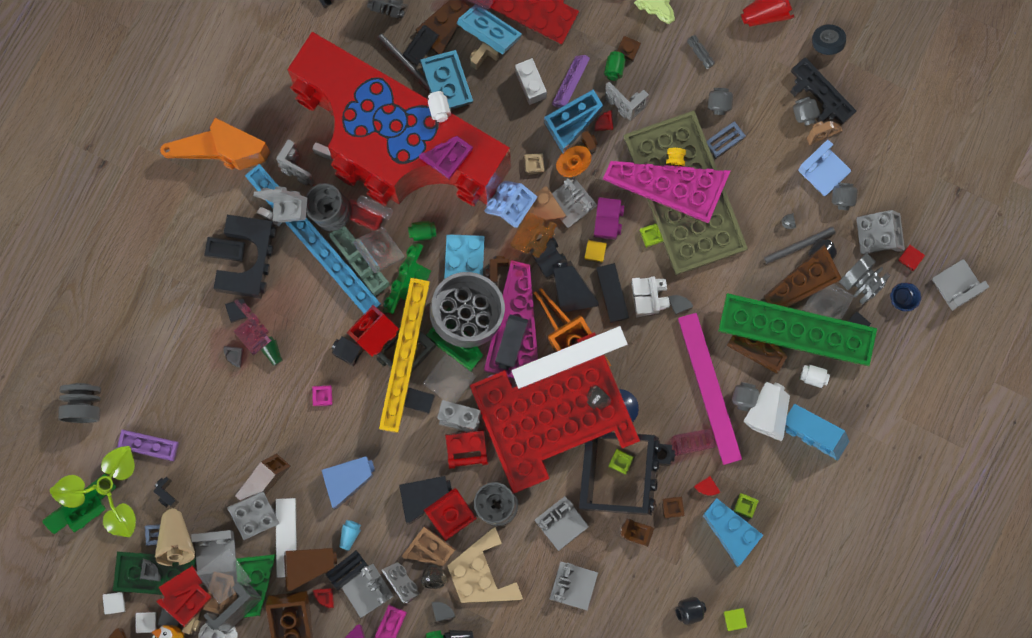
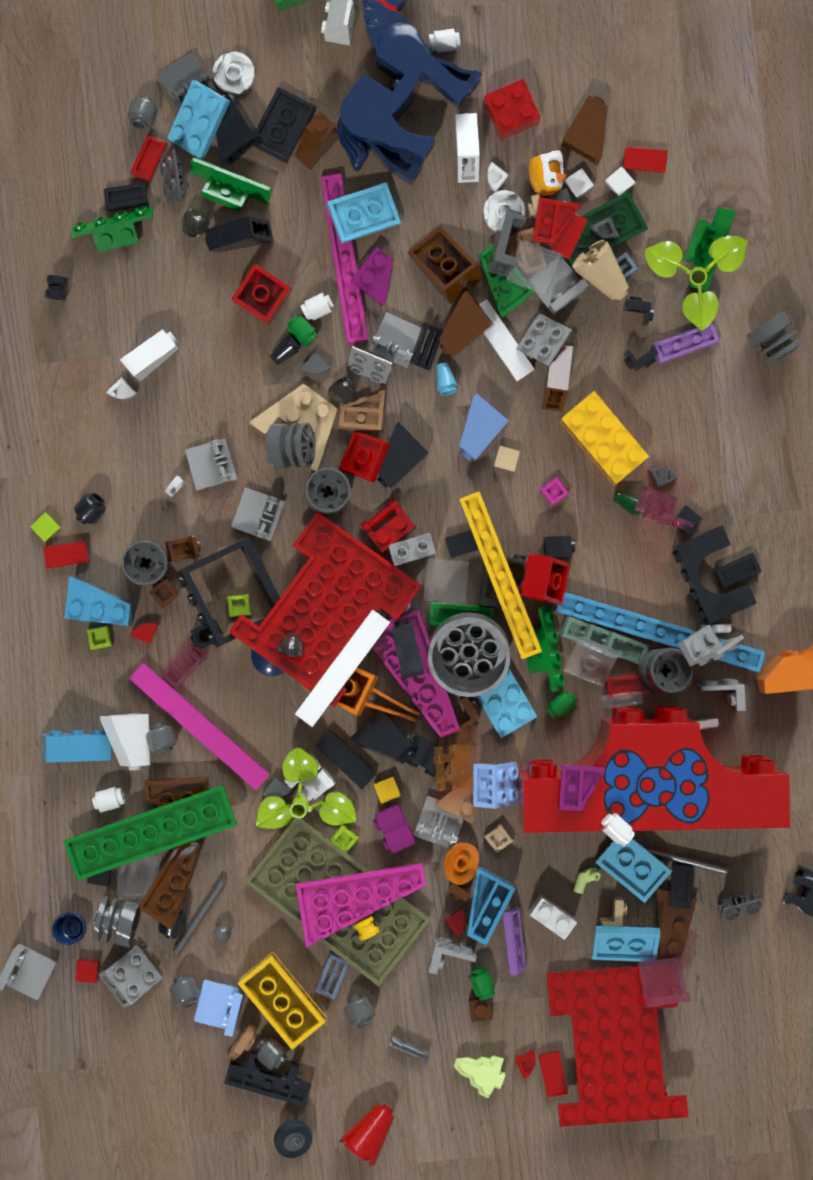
camera: 150 degrees right, 10 degrees up
(83, 608) = (645, 159): none -> red tile
(186, 450) = (645, 360): none -> black bracket
(258, 411) = (604, 438): none -> yellow brick
(324, 597) = (431, 309): red tile -> none
(342, 443) = (506, 458): none -> tan tile
(488, 96) = (585, 877): none -> yellowish green arm
(501, 557) = (290, 445): none -> dark grey wheel
(613, 586) = (174, 486): none -> white tile
(649, 306) = (301, 767): none -> lime plant
(682, 532) = (133, 558): none -> dark grey wheel
(732, 587) = (66, 554): none -> red tile
(773, 144) = (282, 1000): none -> yellow brick

